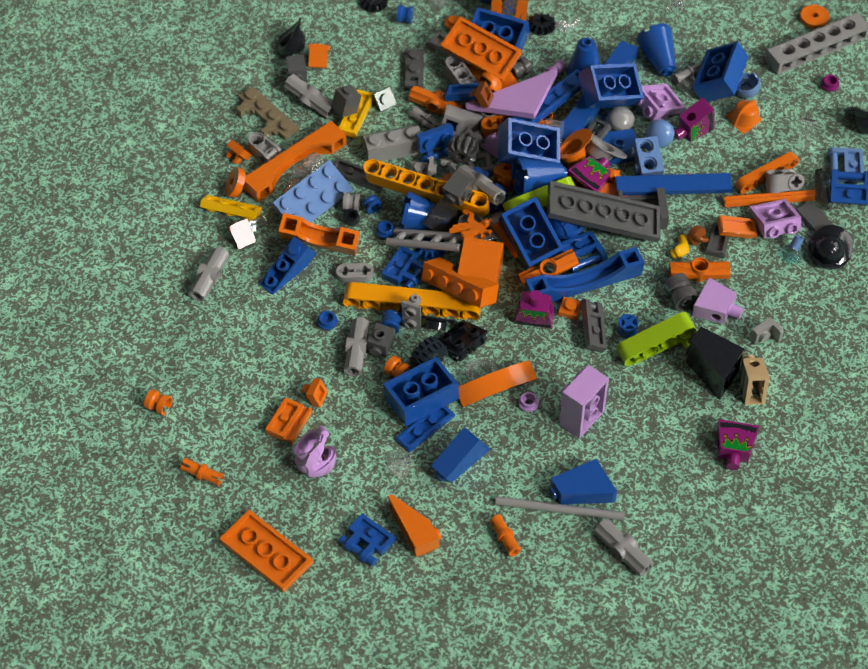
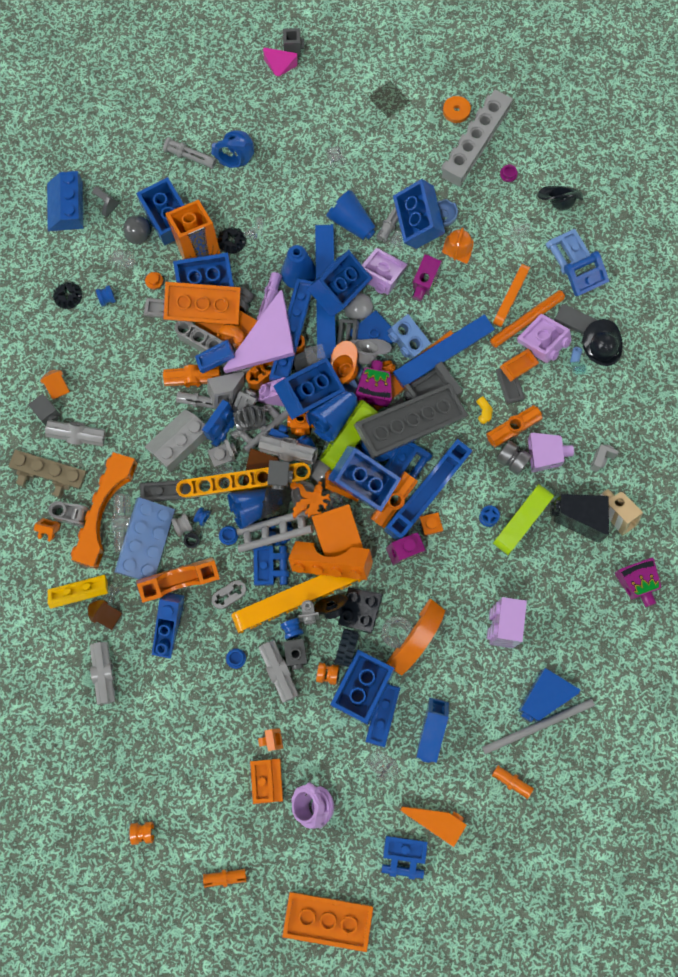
camera: 30 degrees left, 20 degrees up
(235, 182) = (66, 565): orange piece -> none
(291, 41) = (19, 375): black hat -> none
(346, 100) = (114, 424): dark grey brick -> none
(352, 123) = (127, 427): yellow plate -> none
(384, 99) = (143, 398): plate -> none
(414, 68) = (149, 349): dark grey plate -> none
(483, 94) = (235, 356): dark orange tile -> none
(528, 396) = (453, 632): lavender plate -> none
(593, 325) = (461, 531): dark grey plate -> none
(624, 547) = (612, 735): light grey piece -> none
(661, 129) = (402, 303): medium blue hair -> none
(697, 235) = (491, 393): dark orange tile -> none
(783, 180) = (531, 297): light grey piece -> none
(822, 189) = (564, 287): clear smoke tile -> none

